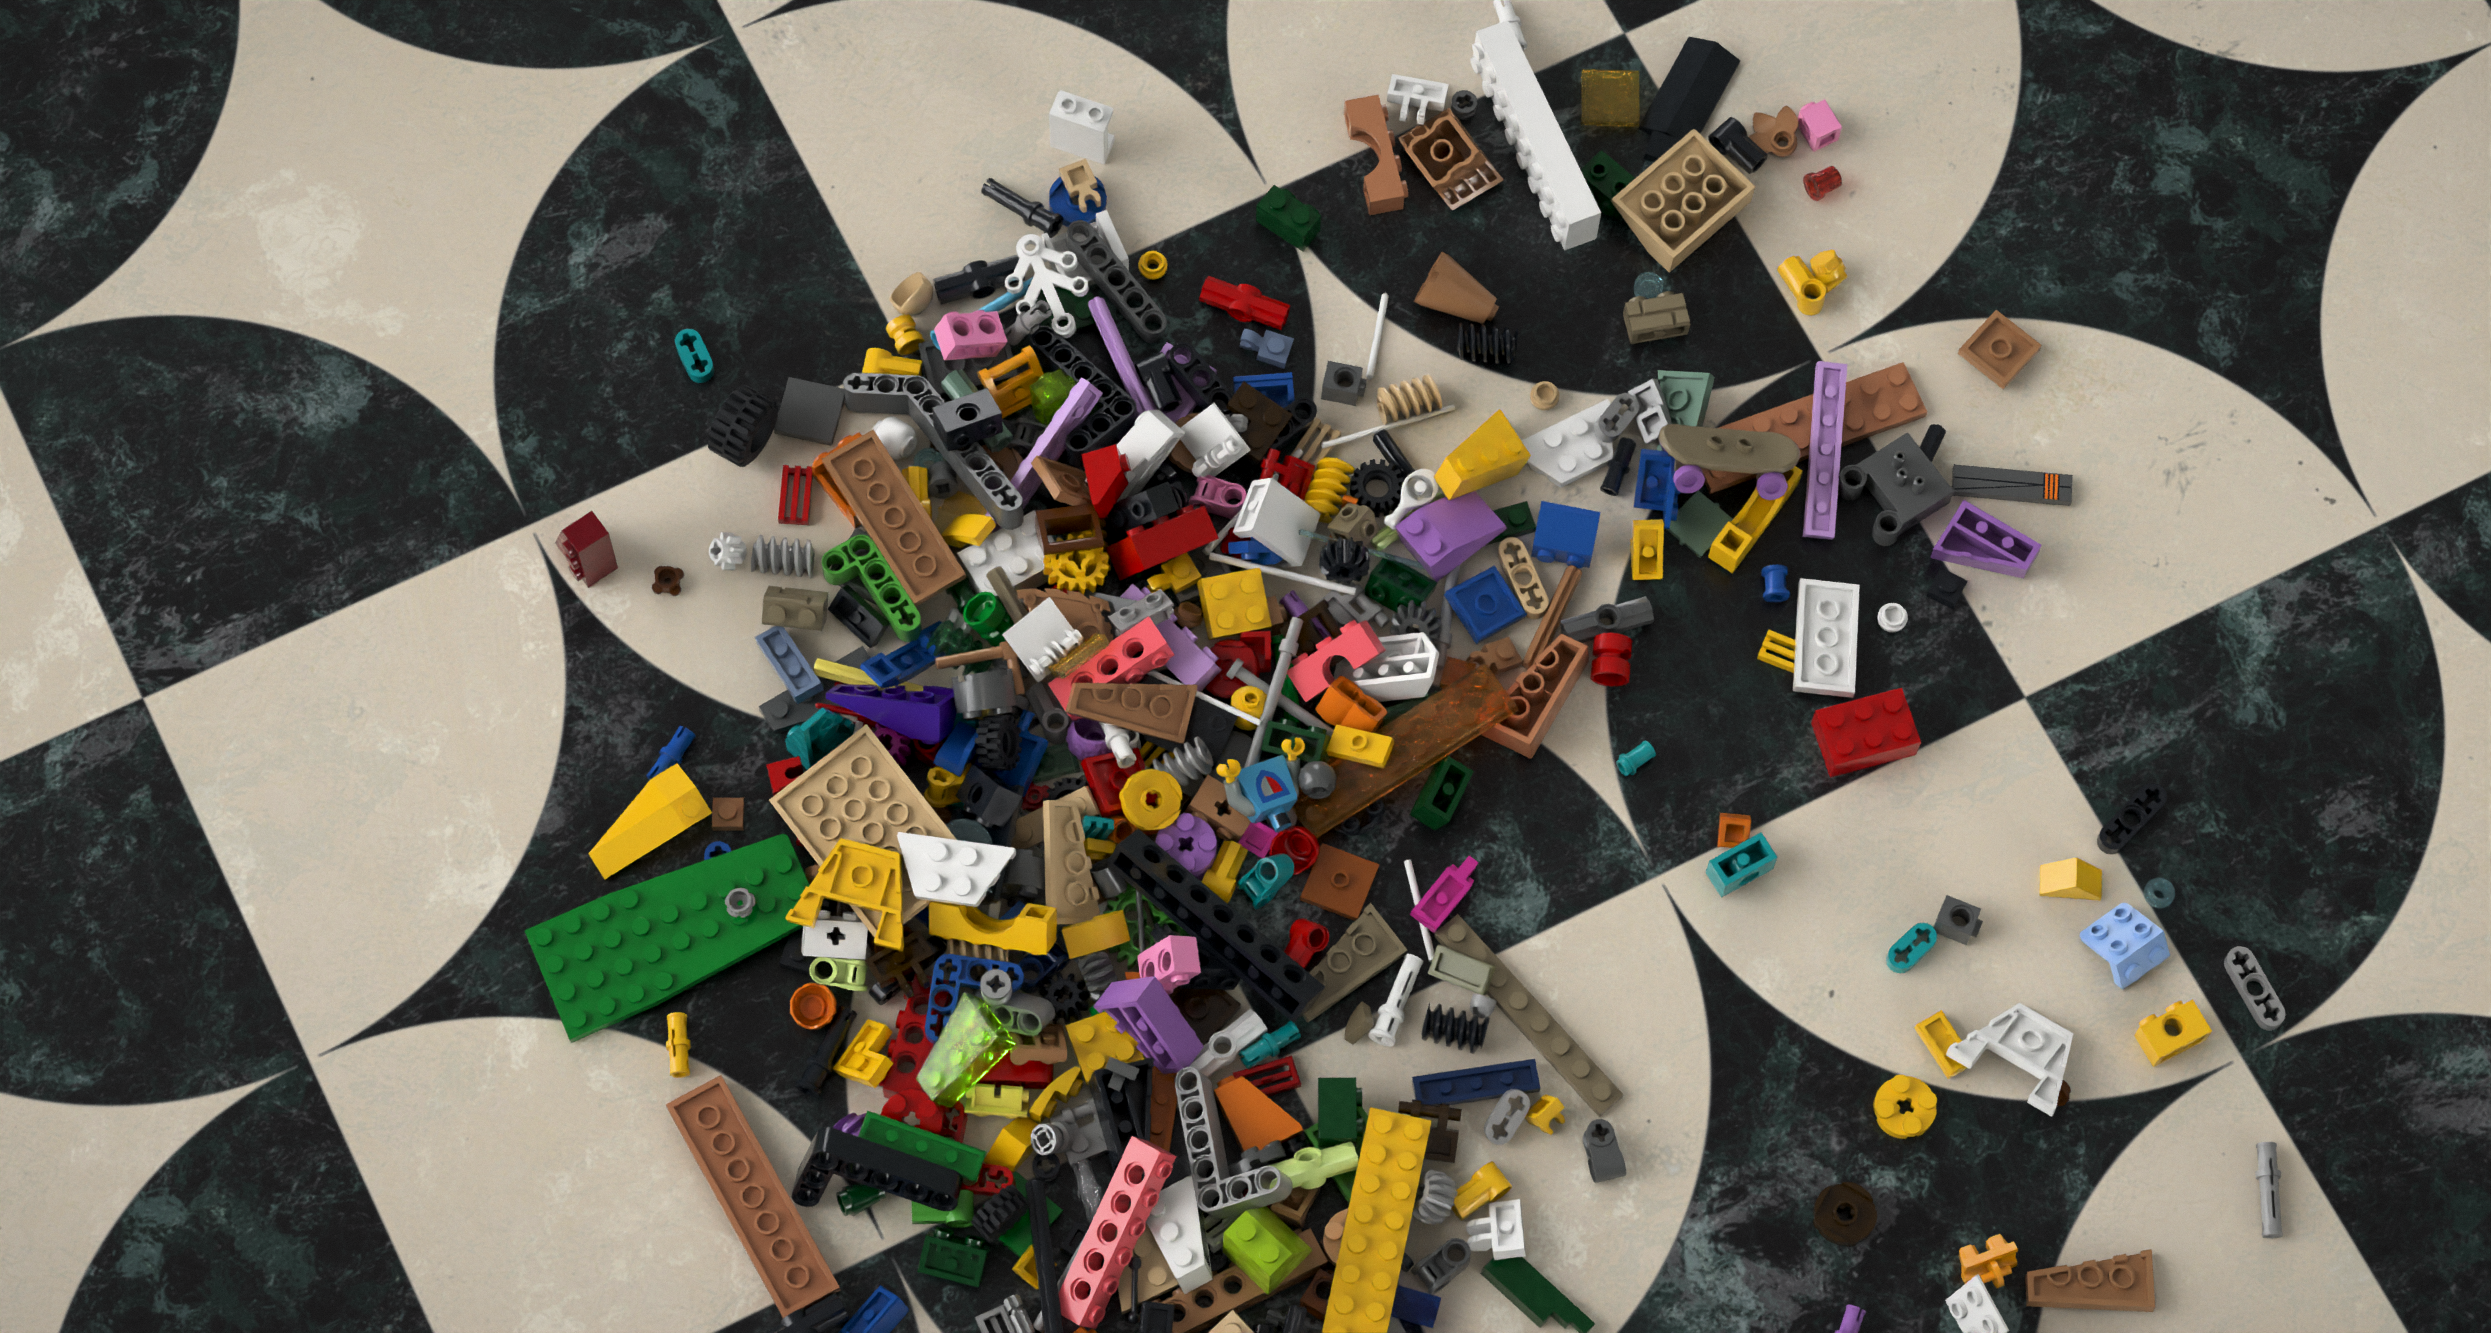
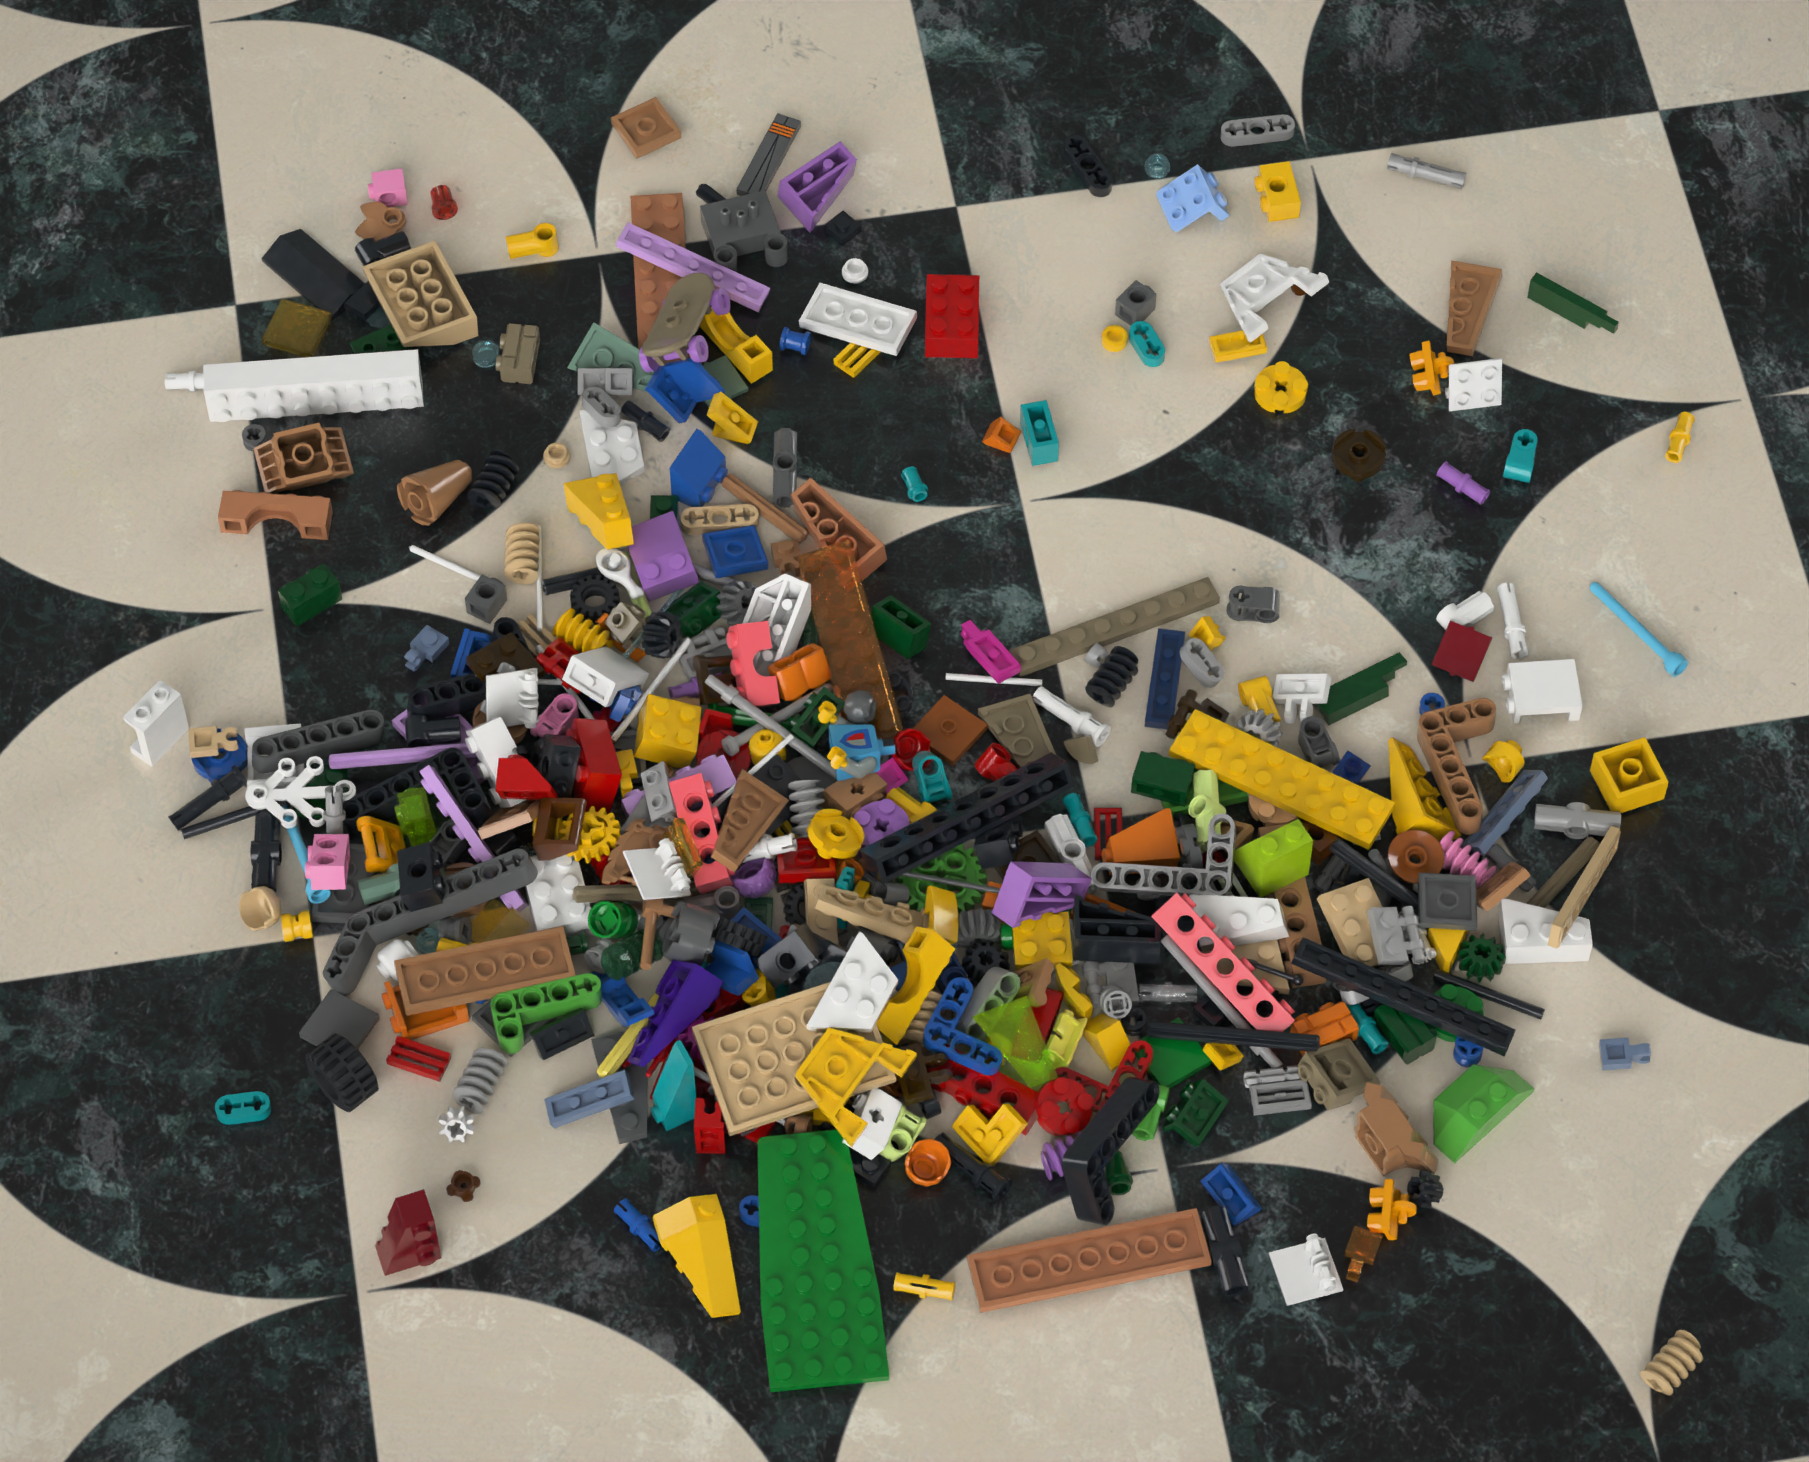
camera: 70 degrees left, 10 degrees down
(728, 814) = (715, 1185): medium nougat plate -> none
(736, 895) = (818, 1181): light grey plate -> none
(795, 608) = (536, 1081): dark tan brick -> none
(882, 362) = (318, 952): yellow piece -> none
(923, 1144) = (1092, 1099): green tile -> none
(968, 529) = (517, 914): yellow slope -> none
(996, 995) = (974, 1003): light grey wheel -> none
(1000, 224) = (223, 820): none -> black bar
(1001, 1213) = (1174, 1054): black tyre -> none
(1120, 1071) = (1086, 915): dark grey tile -> none
(1152, 257) = (305, 708): yellow plate -> none
(1161, 932) = (961, 862): black plate -> none
(1171, 961) = (993, 858): bright pink brick -> none
(1244, 302) = (377, 652): red piece -> none
(1360, 746) = (839, 668): yellow plate -> none
(1417, 93) = (230, 468): white hinge -> none
(1461, 969) = (1061, 658): tile -> none
(1612, 663) = (825, 473): red wheel -> none
(1828, 269) = (523, 219): yellow piece -> none
(1907, 911) = (1114, 338): none -> yellow tile
(2071, 879) = (1125, 222): yellow slope -> none

